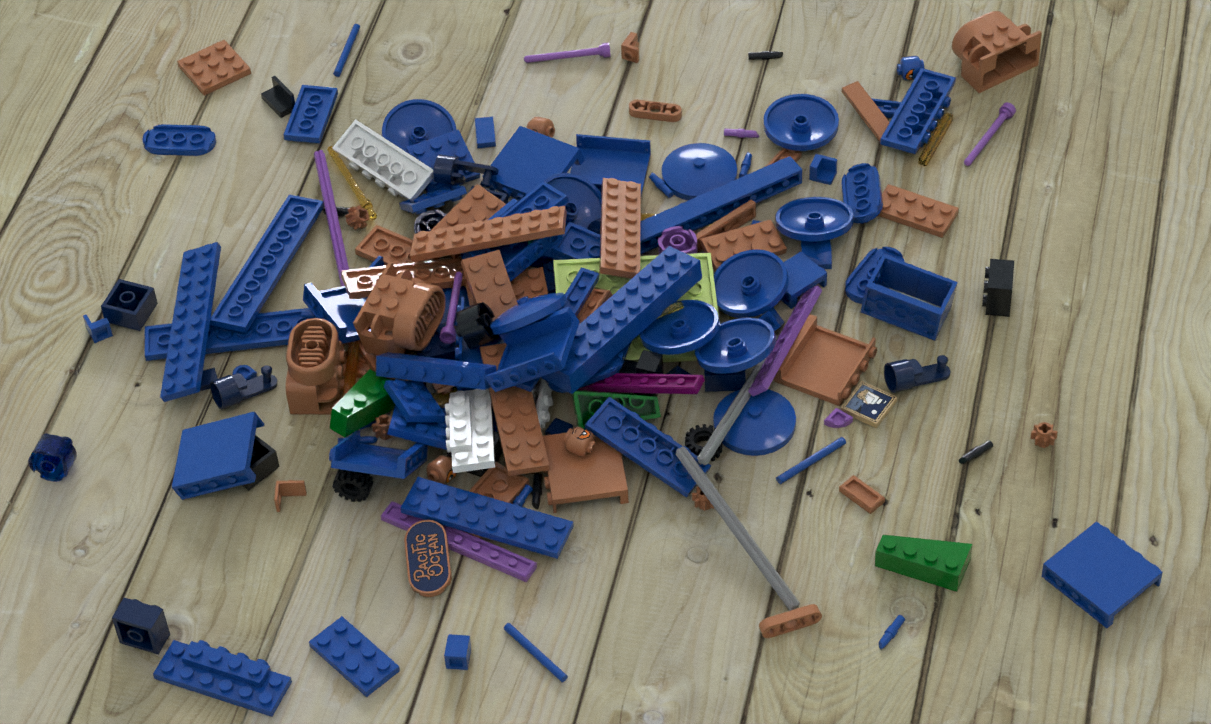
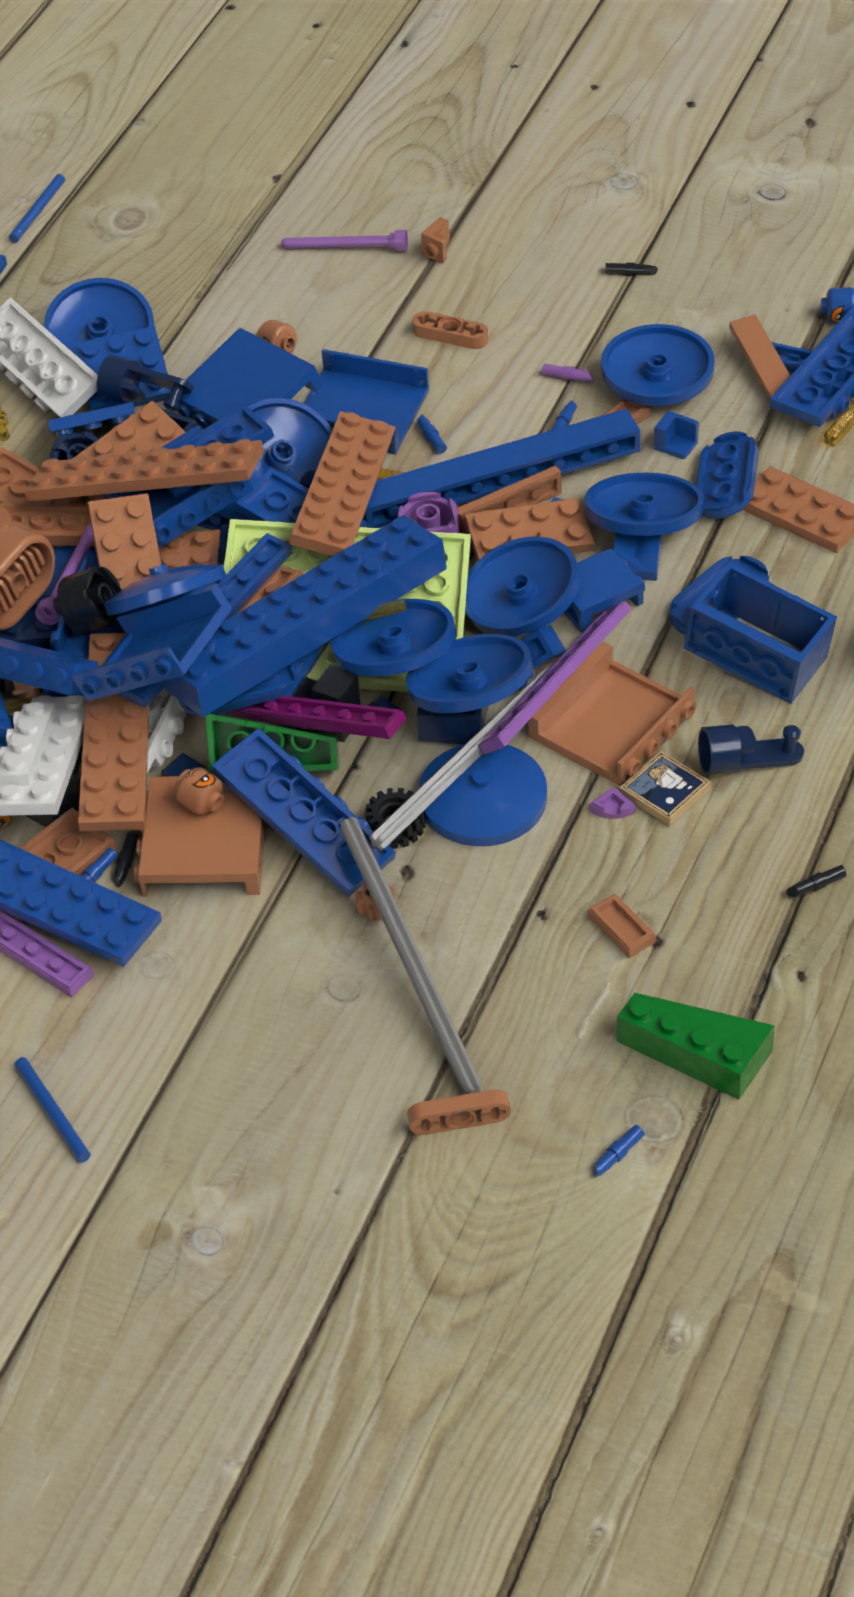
camera: 10 degrees right, 0 degrees up
(485, 132) = (197, 336): blue tile -> none
(698, 169) = (490, 416): blue dish -> none
(811, 460) = (555, 863): blue bar -> none

